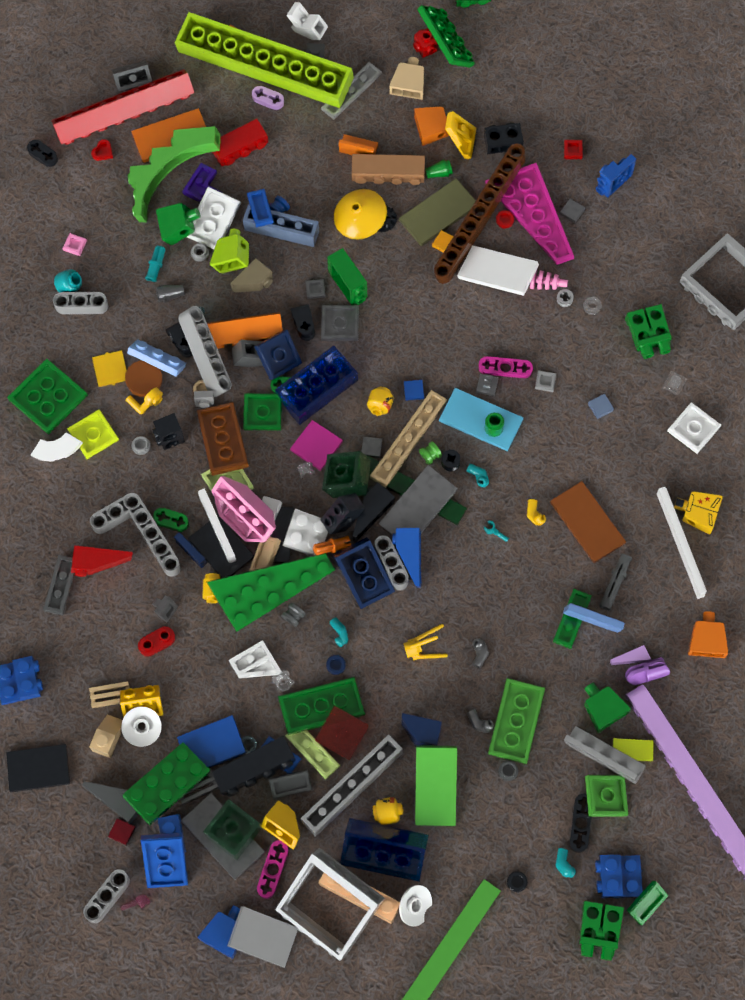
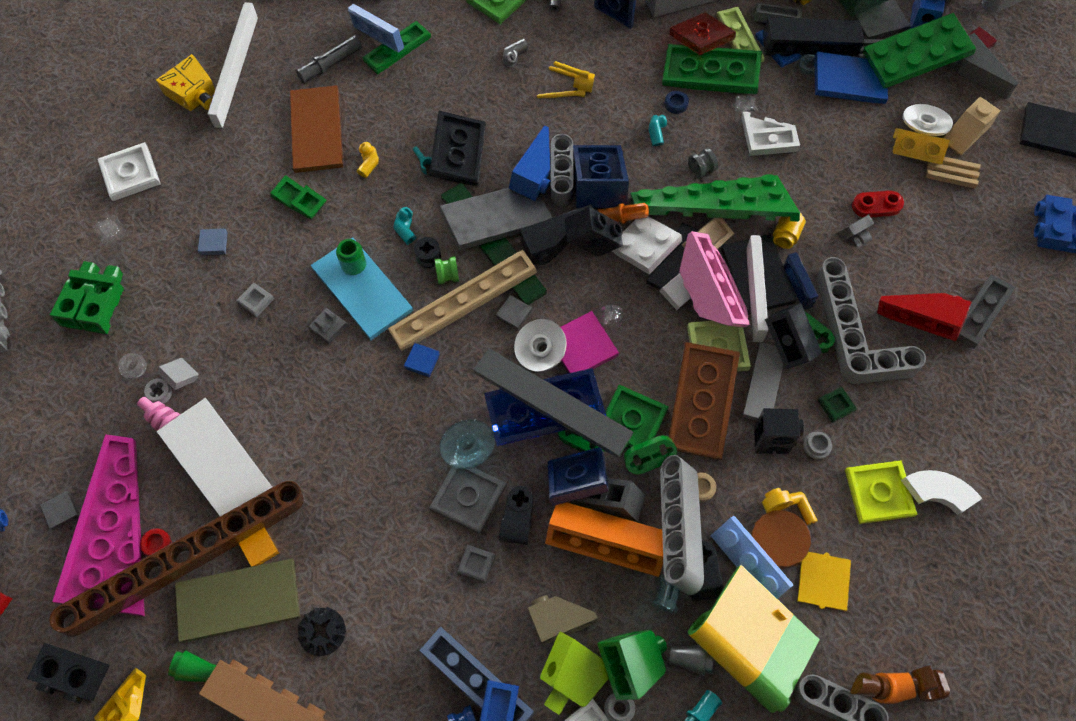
camera: 155 degrees left, 5 degrees down
(47, 396) = (934, 575): green plate -> none
(50, 326) = (899, 687): none -> reddish brown piece
(137, 478) = (837, 404): none -> dark green tile
(138, 312) = (756, 640): none -> yellow door
(180, 499) = (793, 336): none -> black brick
(188, 471) = (764, 381): none -> light grey tile
(200, 271) = (633, 662): none -> green torso
(204, 399) = (707, 464): light grey plate -> none
(241, 390) = (649, 453): none -> green beam
(312, 381) = (553, 403): none -> dark grey tile
(345, 423) = (531, 337): none -> white dish
(346, 474) = (565, 277): clear green brick -> none
(347, 277) = (423, 543): green window -> none
(361, 342) = (465, 434): none -> clear light blue dish
(363, 221) = (326, 656): yellow dish -> none
(380, 400) = (468, 357): yellow head -> none
(475, 548) = (457, 148): none -> black tile
(518, 374) = (295, 347): dark pink beam -> none
(559, 312) = (178, 373): none -> light grey tile
(560, 462) = (300, 199): none -> green slope

